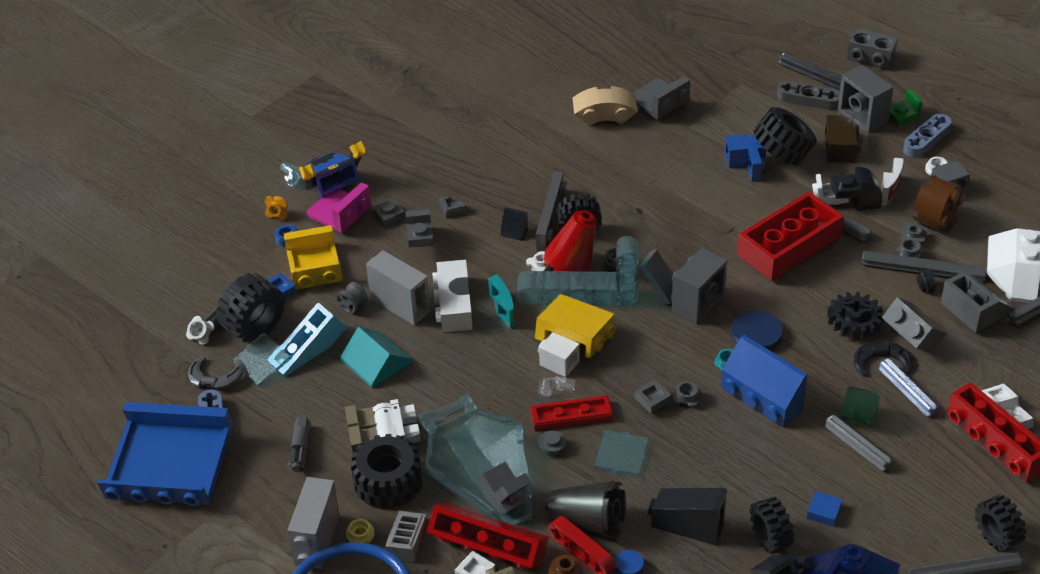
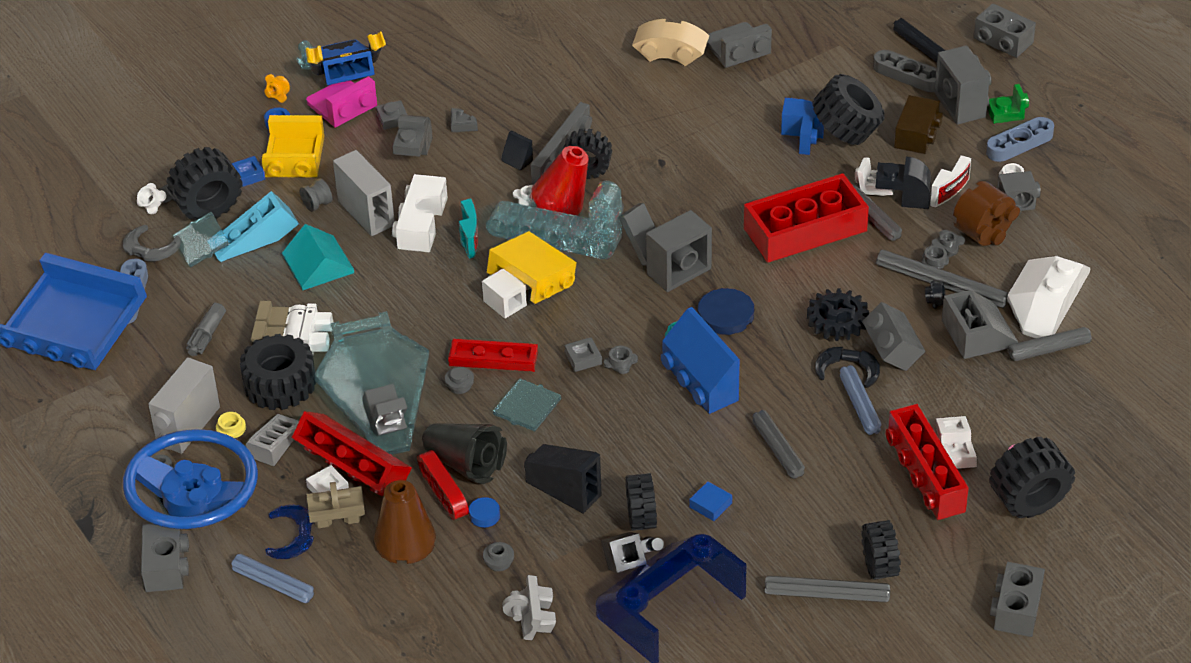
camera: 15 degrees right, 0 degrees up
(558, 383) = (489, 321): clear arm -> none
(860, 406) = (794, 407): clear green piece -> none

